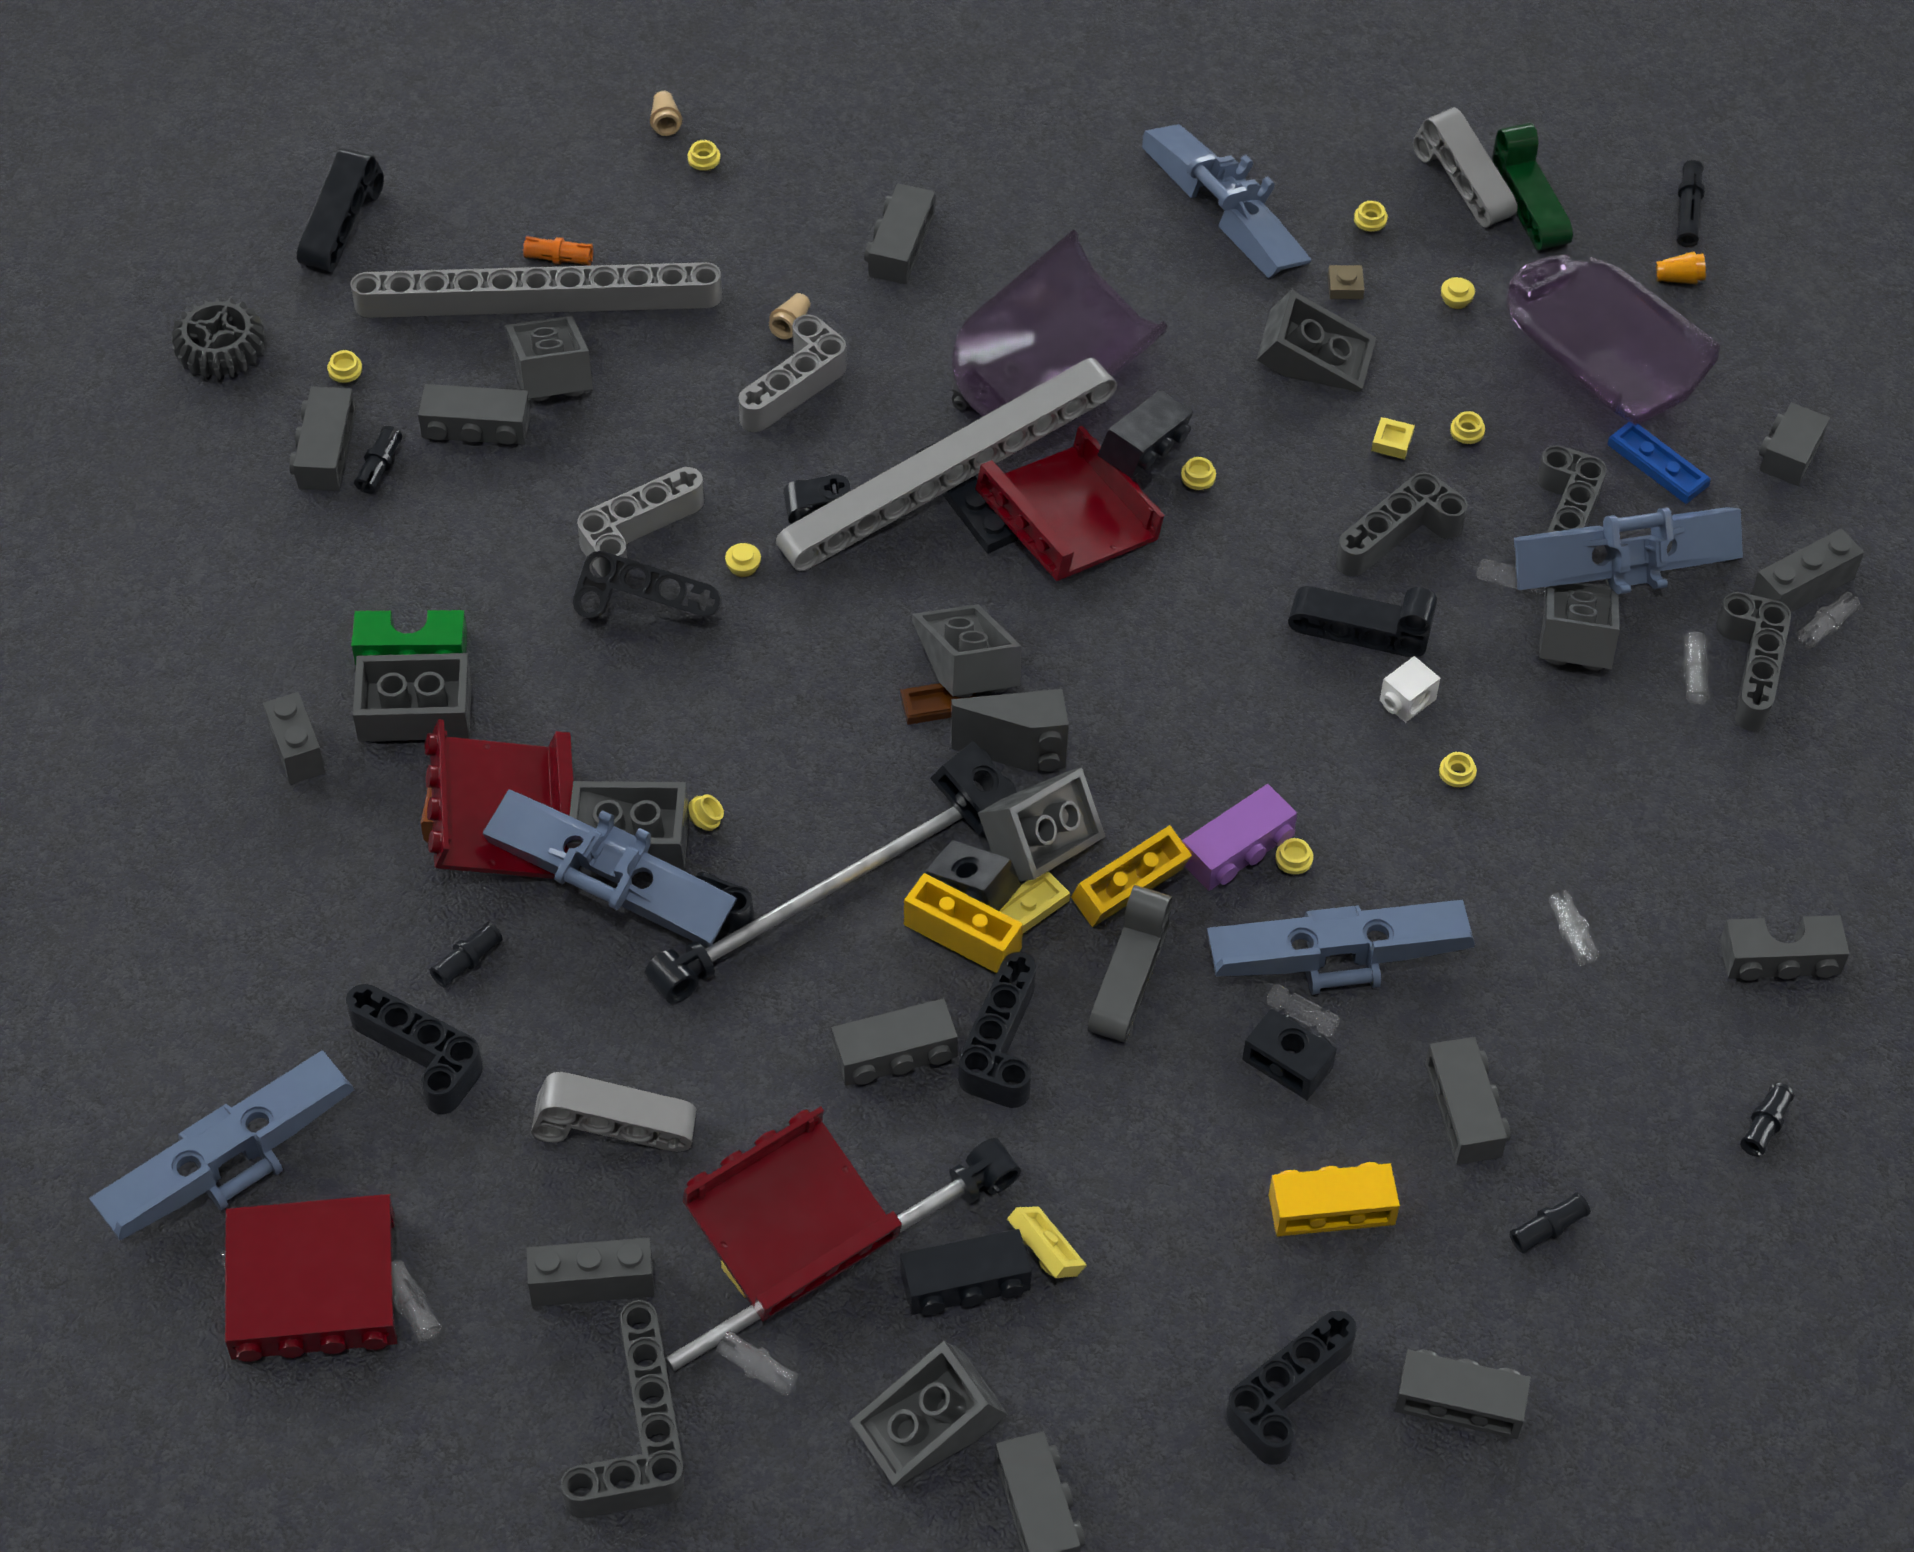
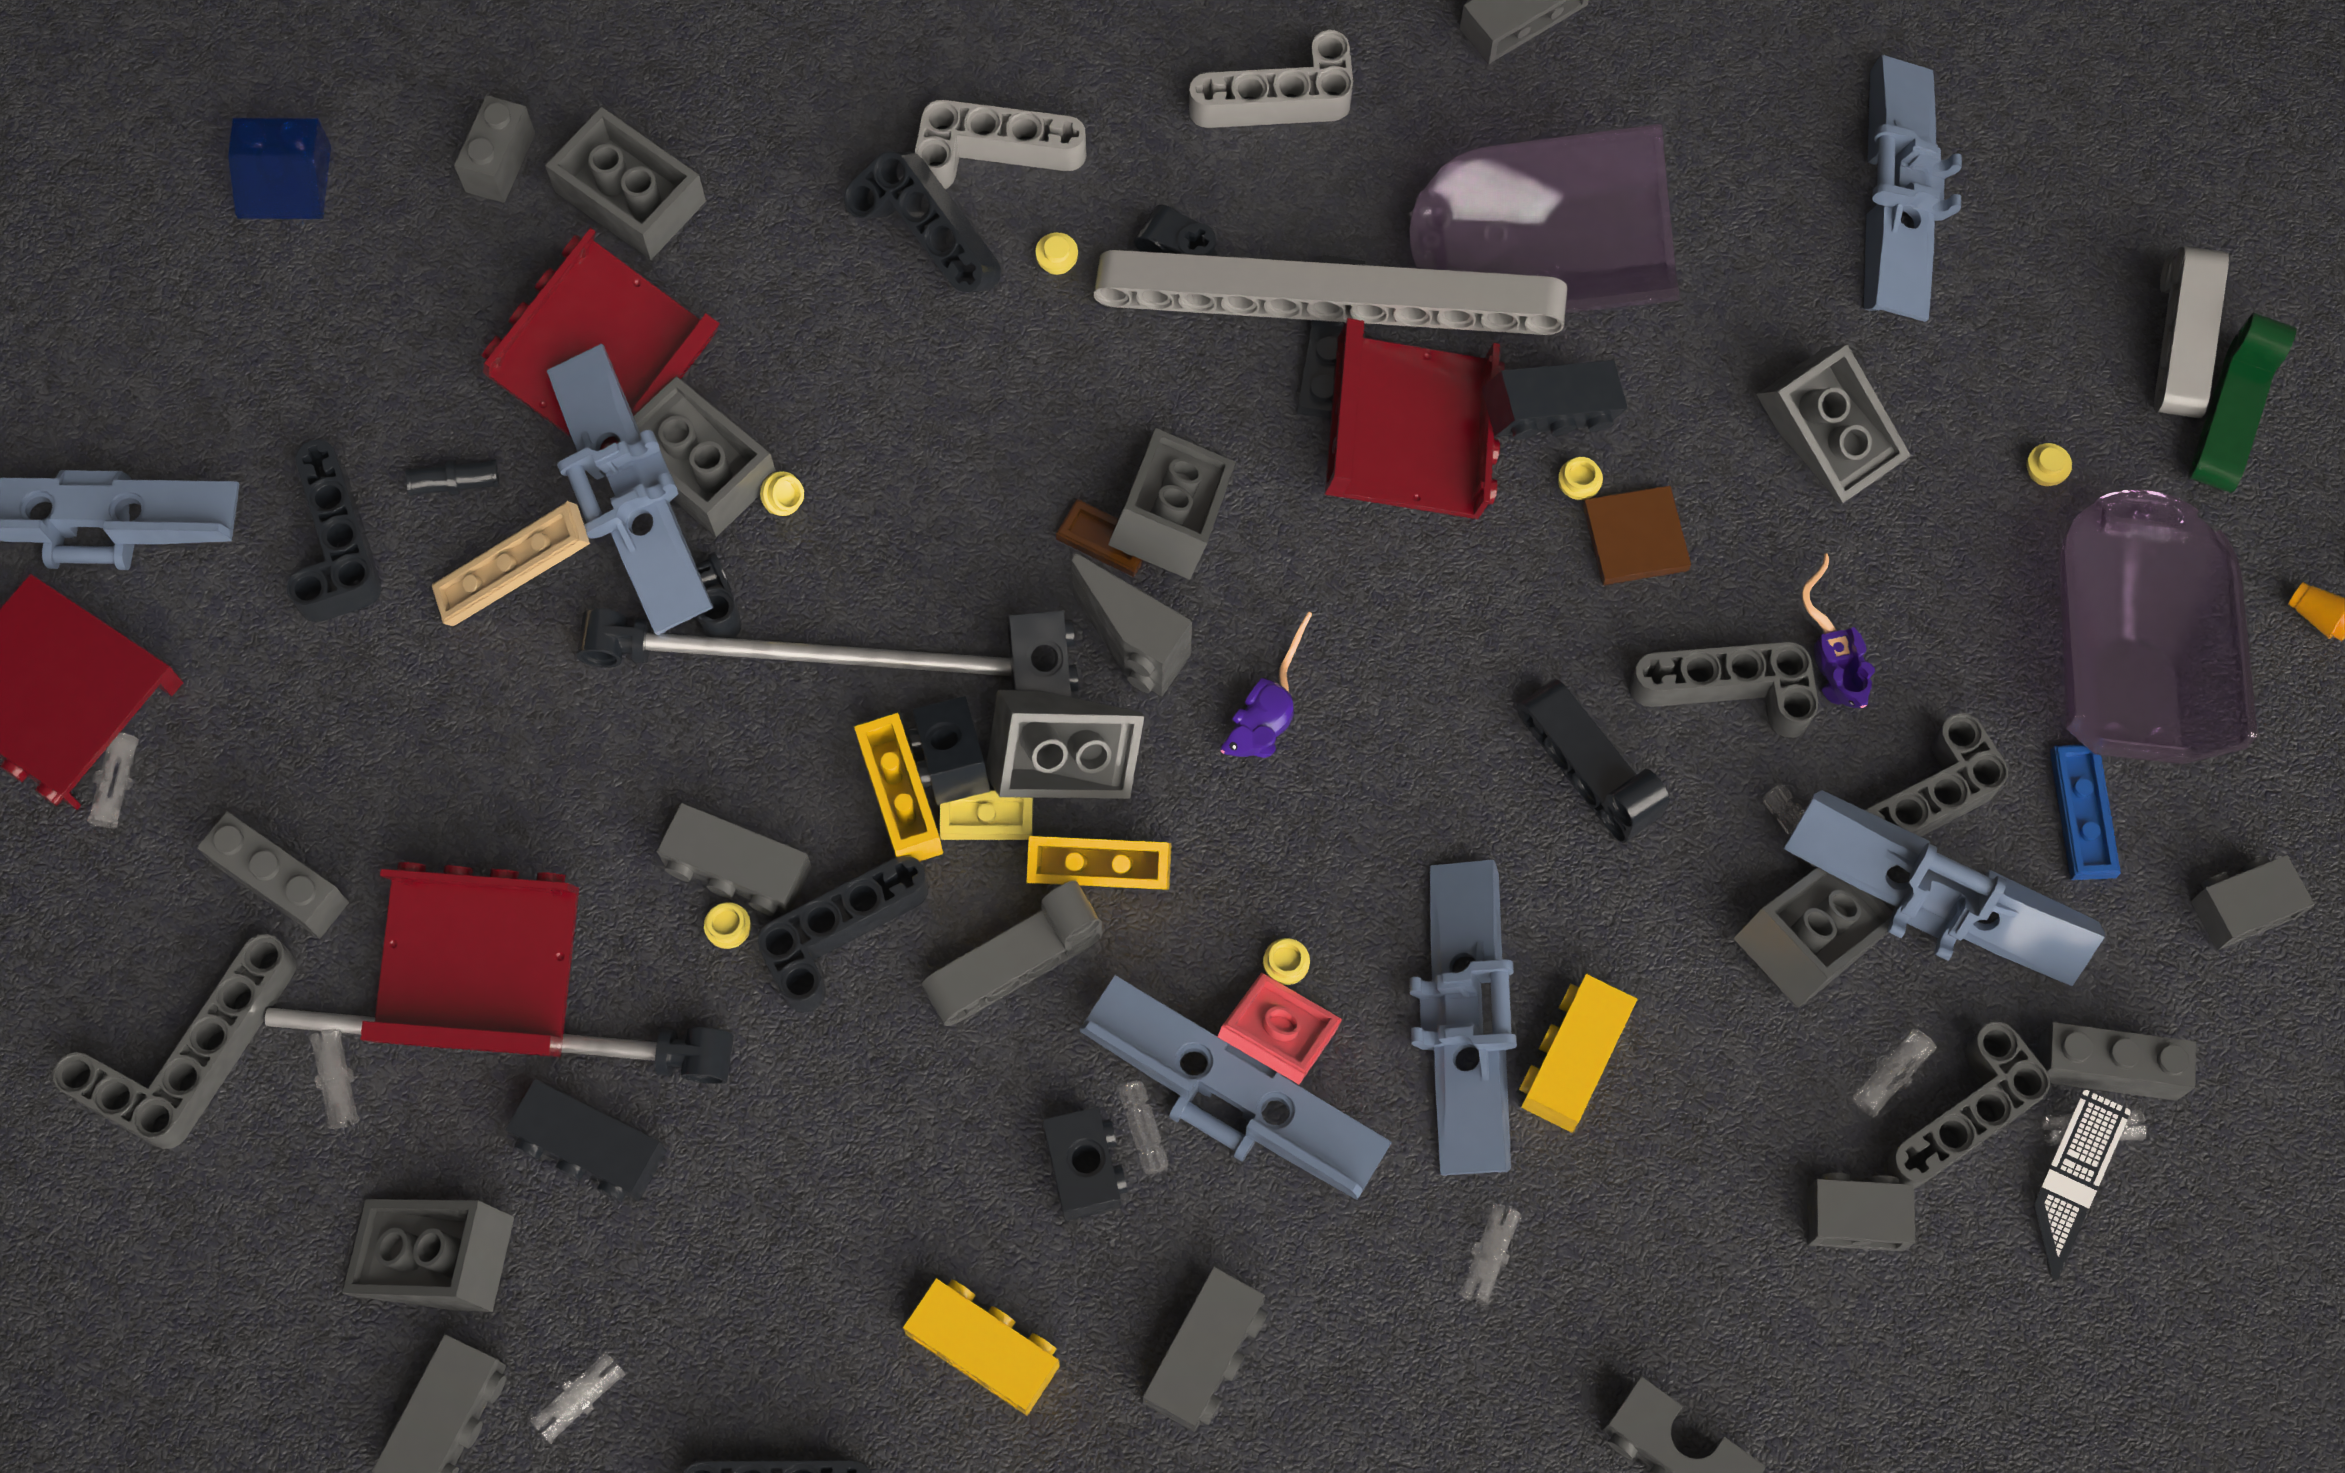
camera: 40 degrees right, 15 degrees up
(143, 849) = (279, 167): none -> clear blue slope
(375, 634) = (706, 143): green arch -> none
(570, 968) = (510, 563): none -> tan tile
(611, 1111) = (426, 738): light grey beam -> none
(783, 317) = (1339, 17): tan cone -> none
(925, 1086) = (727, 925): none -> light yellow plate
(1047, 1242) = (684, 1171): light yellow plate -> none
(1111, 1423) = (577, 1397): none -> clear pin
(1143, 726) = (1267, 712): none -> dark purple animal
(1239, 837) = (1247, 901): medium lavender brick -> none
(1262, 484) = (1636, 535): none -> reddish brown tile
(1331, 890) = (1279, 1028): none -> coral tile
(1345, 282) = (1939, 370): dark tan plate -> none
(1370, 216) = (2042, 306): light yellow plate -> none
(1392, 438) = (1826, 589): light yellow plate -> none
(1409, 689) = (1566, 871): white brick -> none
(1448, 465) = (1839, 655): none -> dark purple animal
(1457, 762) = (1542, 982): light yellow plate -> none
(1467, 428) = (1915, 617): light yellow plate -> none
(1478, 855) = (1472, 1102): none -> sand blue piece
(1514, 782) = (1576, 1052): none -> yellow brick
(1753, 752) = (1861, 1213): none -> dark grey brick
(1845, 648) = (2077, 1174): none -> sticker

